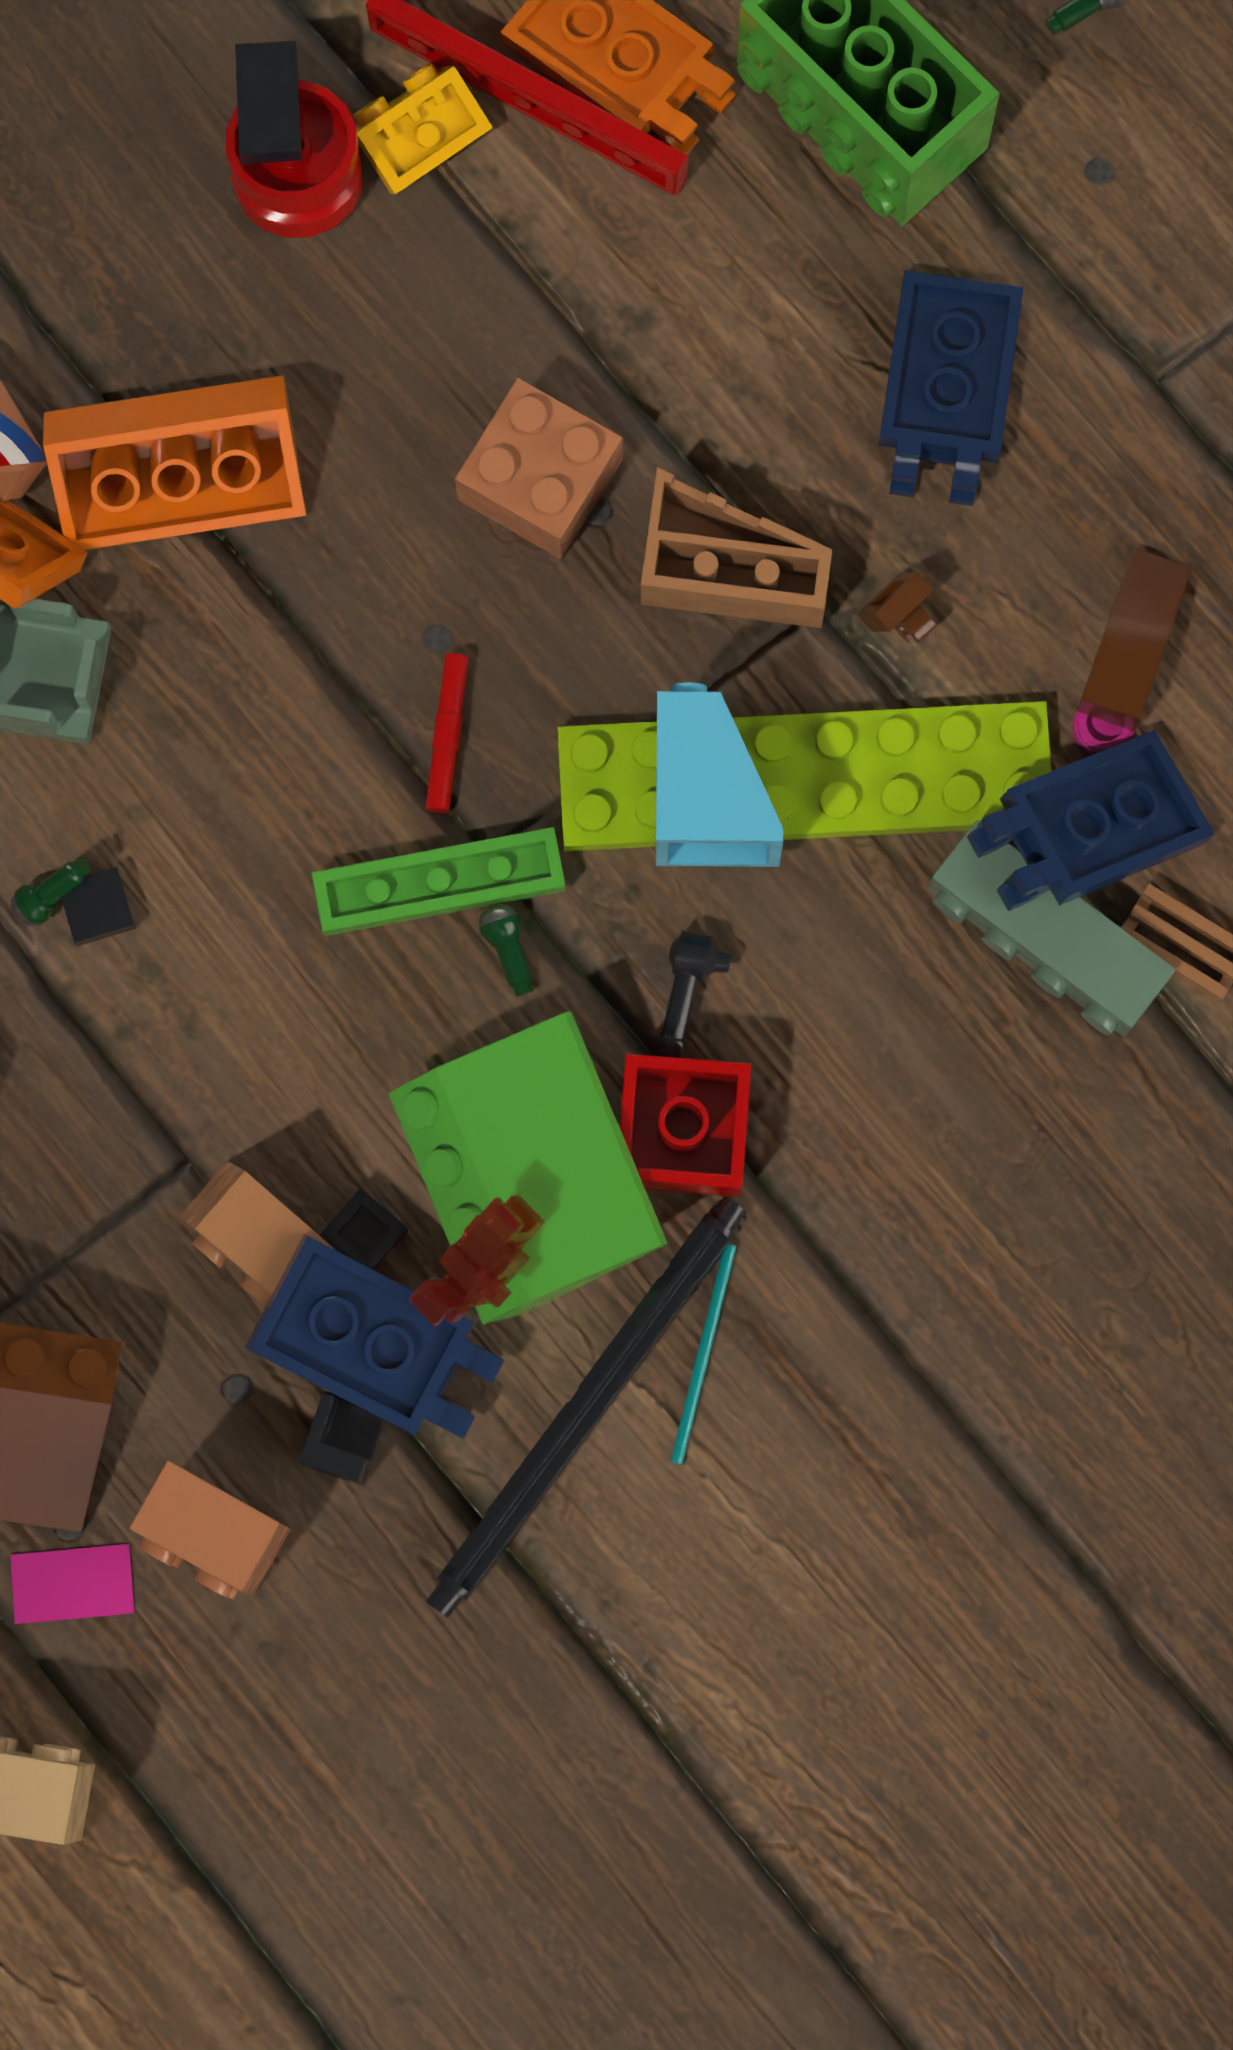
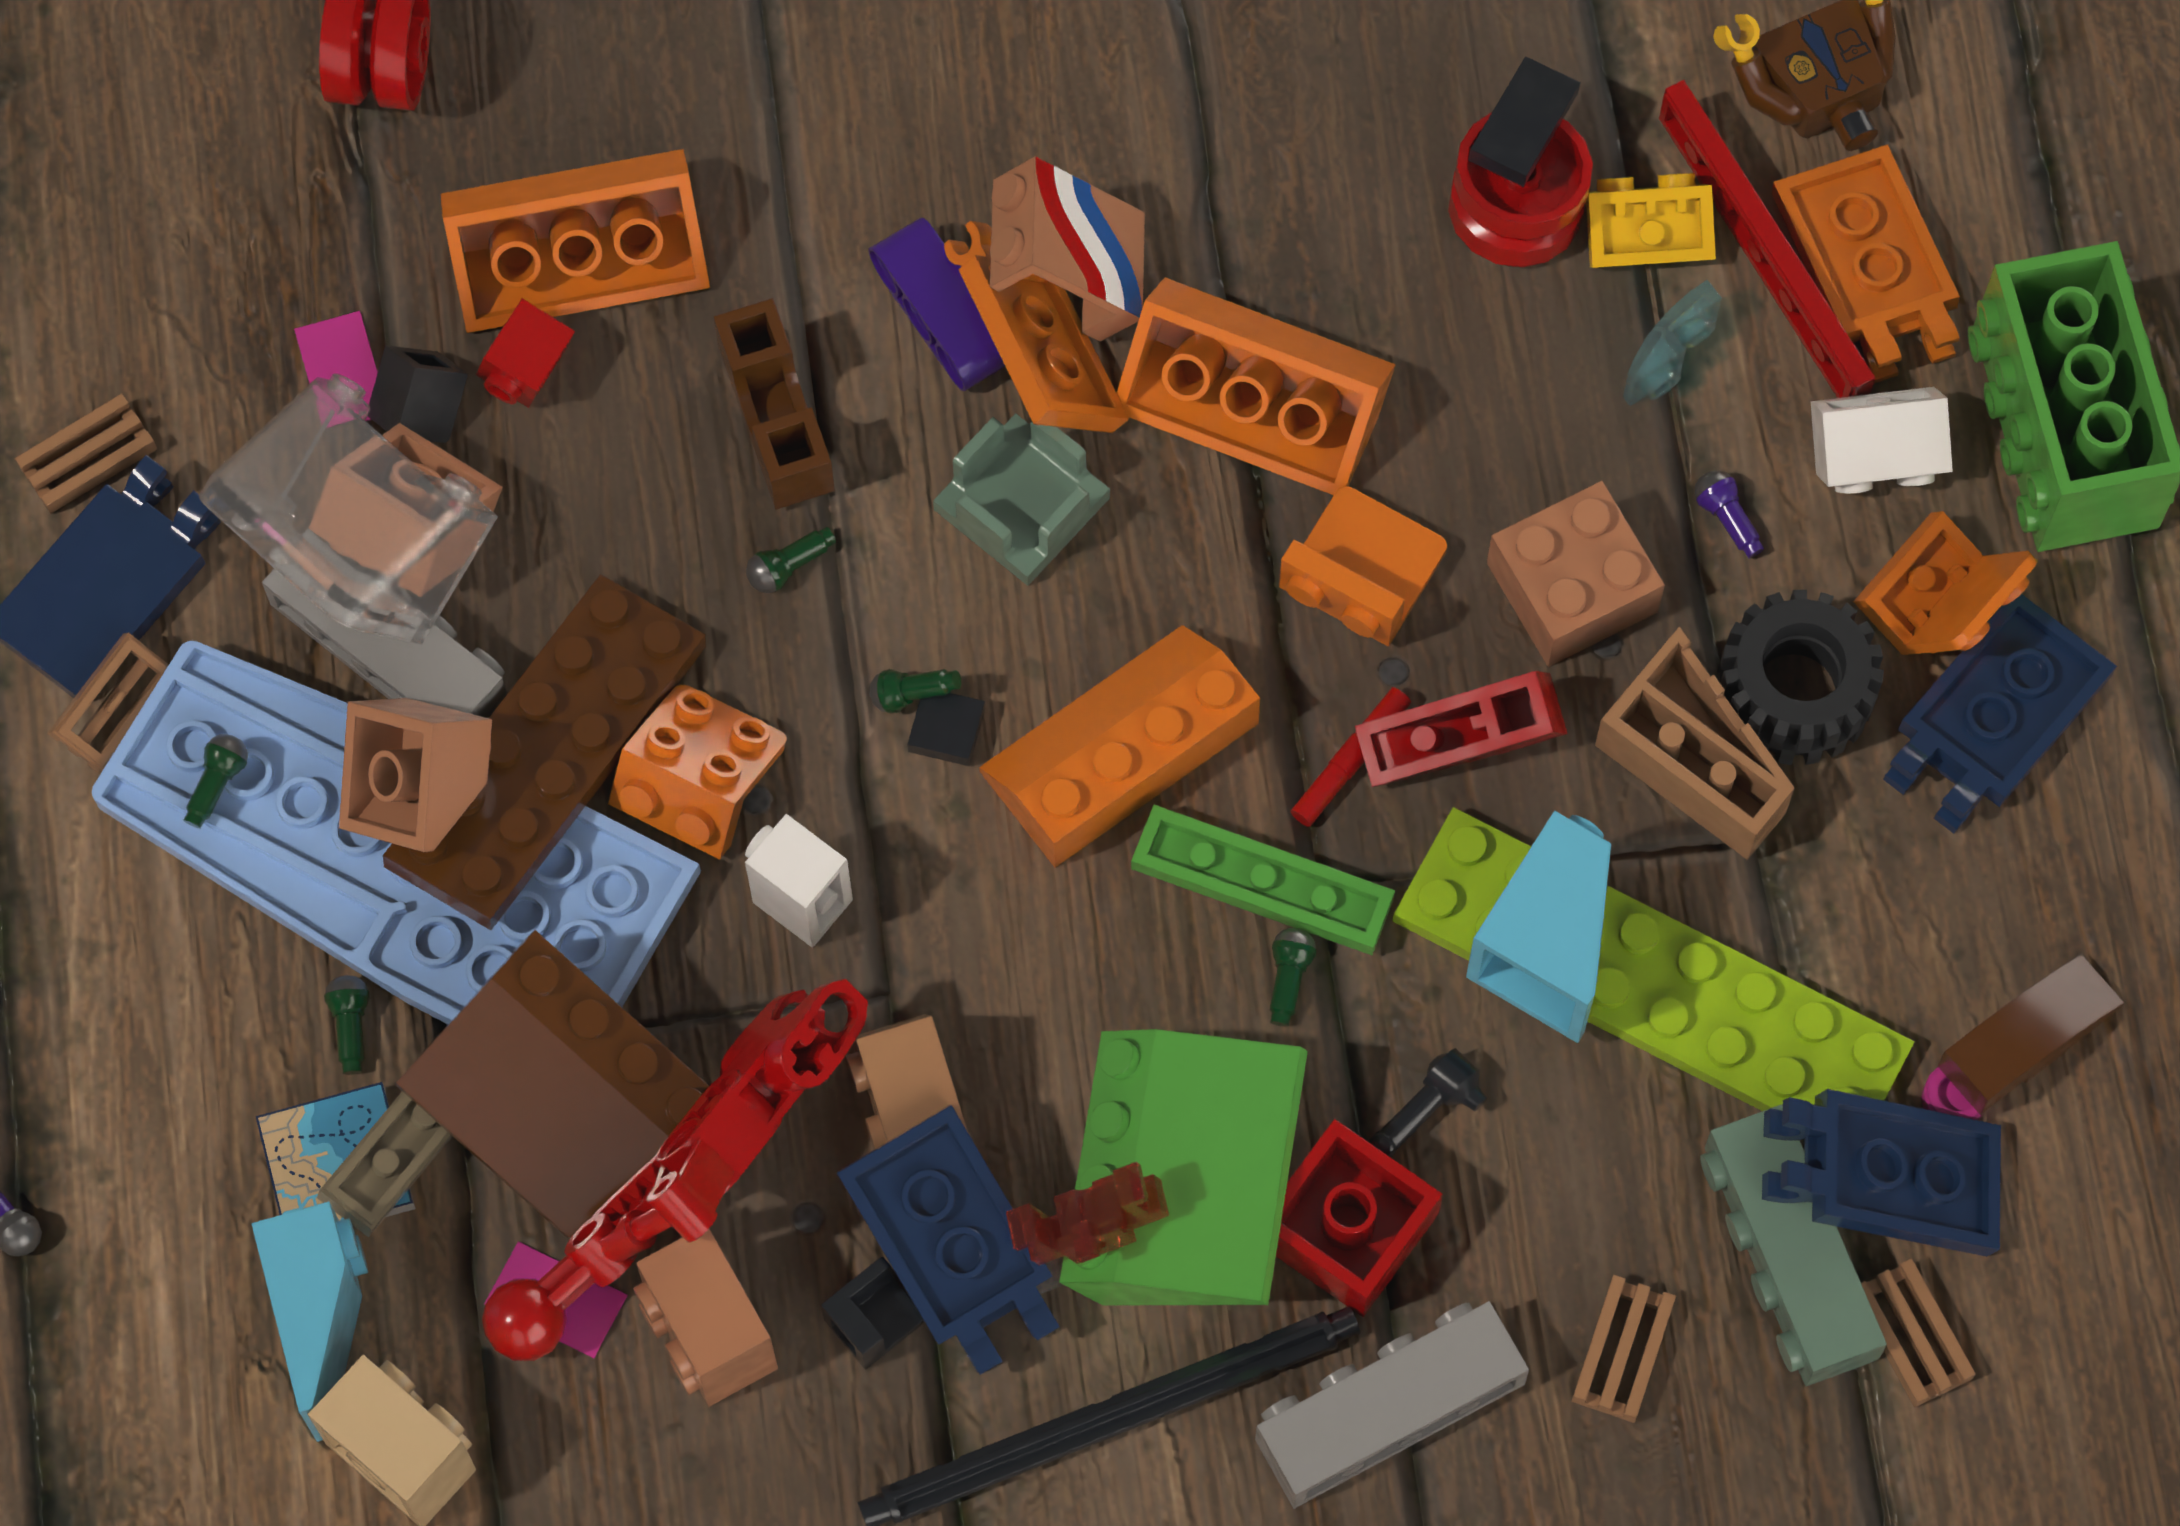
camera: 30 degrees right, 10 degrees down
(56, 1115) = (797, 879): none -> white brick
(127, 1413) = (692, 1168): none -> red piece
(251, 833) = (1123, 743): none -> orange slope
(359, 563) = (1362, 565): none -> orange bracket
(364, 1230) = (1008, 1144): black tile -> none
(499, 235) = (1662, 354): none -> clear light blue slope
(526, 657) = (1462, 728): none -> red slope
(614, 330) = (1718, 494): none -> dark purple piece
(703, 1355) = (1239, 1441): teal axle -> none
(722, 204) = (1881, 438): none -> white brick
(785, 403) = (1812, 631): none -> black tyre
(807, 1256) = (1390, 1403): none -> light grey brick
(849, 306) = (1942, 589): none -> orange bracket
(899, 608) = (1829, 881): reddish brown tile -> none
(952, 1045) = (1640, 1297): none -> medium nougat tile

